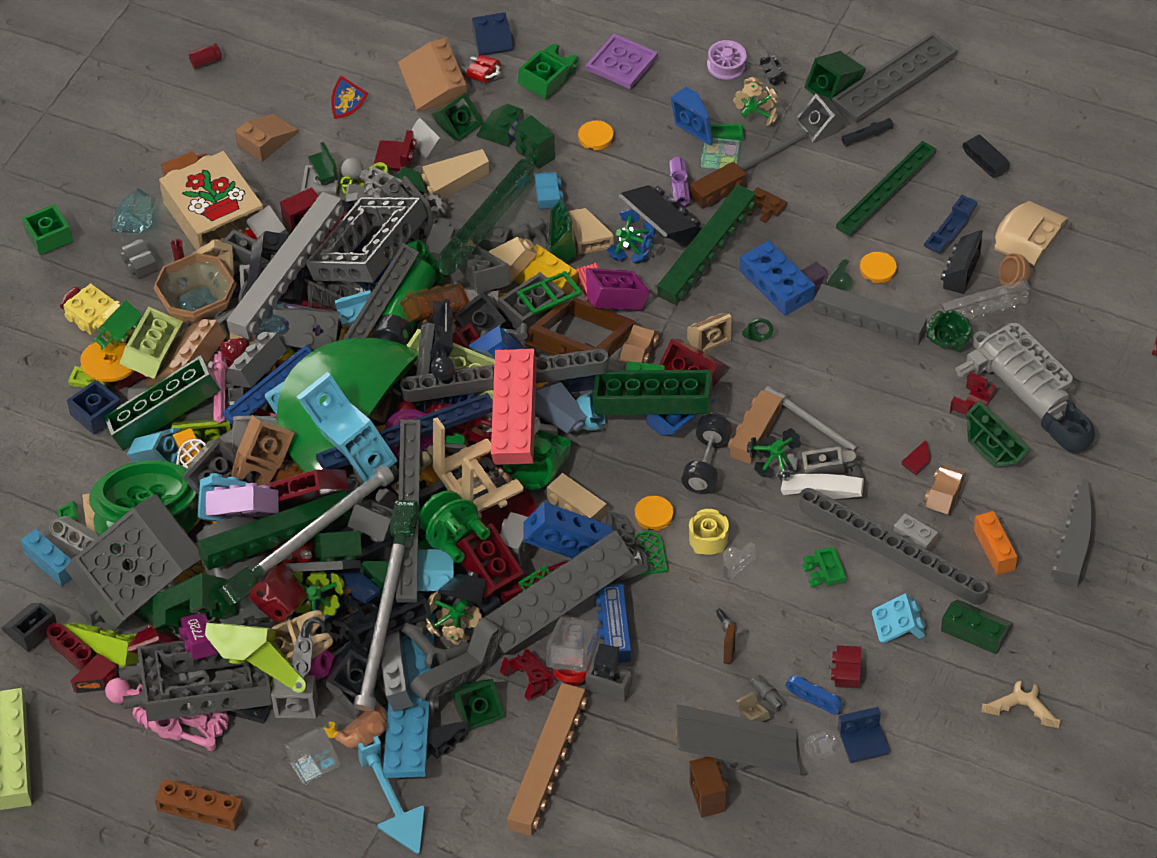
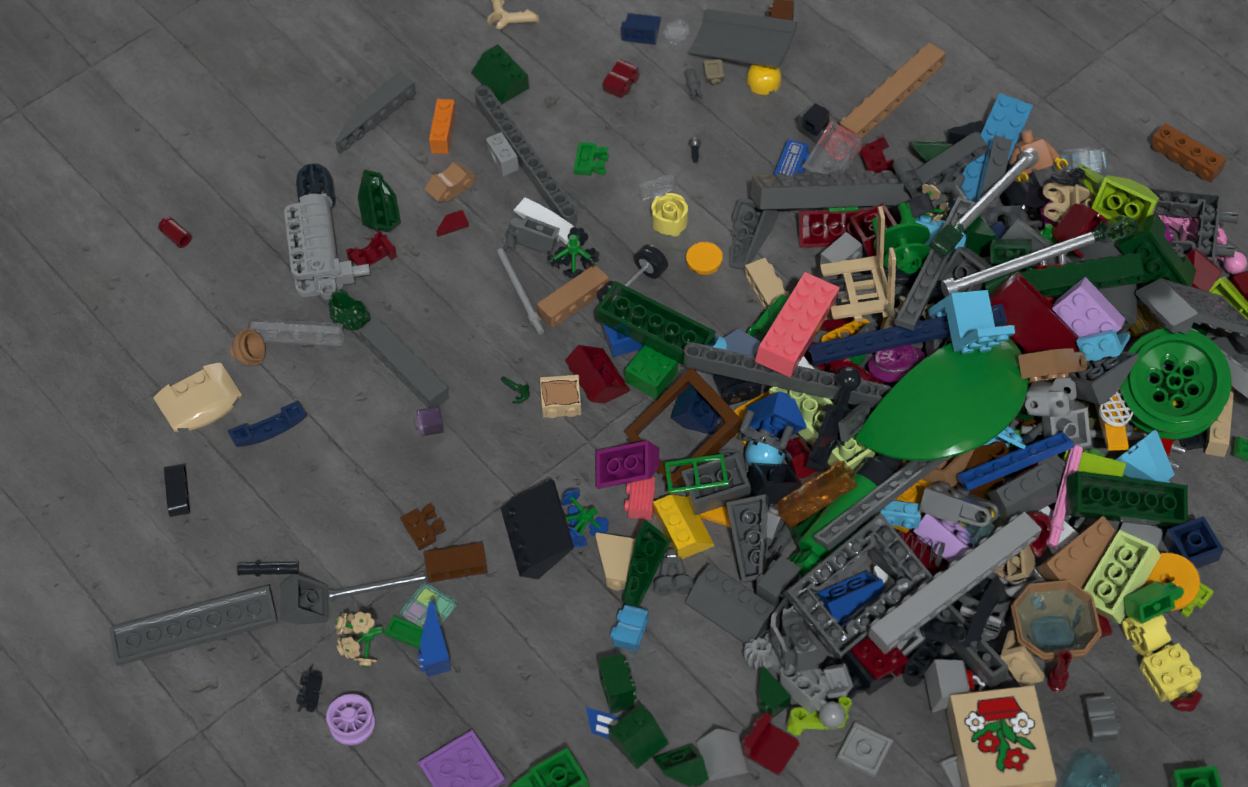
camera: 155 degrees left, 5 degrees up
(296, 207) = (905, 692): dark red brick -> none
(324, 165) = (858, 755): dark green panel -> none
(405, 826) = (1025, 85): medium azure piece -> none
(454, 173) = (719, 689): tan slope -> none
(486, 217) = (712, 599): clear green beam -> none
(516, 254) = (712, 544): tan slope -> none
(562, 530) = (797, 230): blue brick -> none
(595, 135) = (542, 685): light orange tile -> none
(639, 344) = (628, 412): medium nougat brick -> none
(647, 549) = (724, 246): green window -> none
(679, 181) = (488, 591): medium lavender piece -> none
(706, 245) = (496, 493): dark green brick -> none
(729, 644) = (705, 116): reddish brown tile -> none
(777, 278) = (464, 433): blue brick -> none
(814, 694) = (659, 68): blue plate -> none
(833, 74) = (254, 645): dark green slope -> none
(839, 277) = (406, 412): clear green tile -> none
(878, 267) = (361, 414): light orange tile -> none
(886, 188) = (294, 494): dark green plate -> none
(898, 618) = (559, 97): medium azure bracket -> none
(963, 262) = (285, 375): black slope -> none

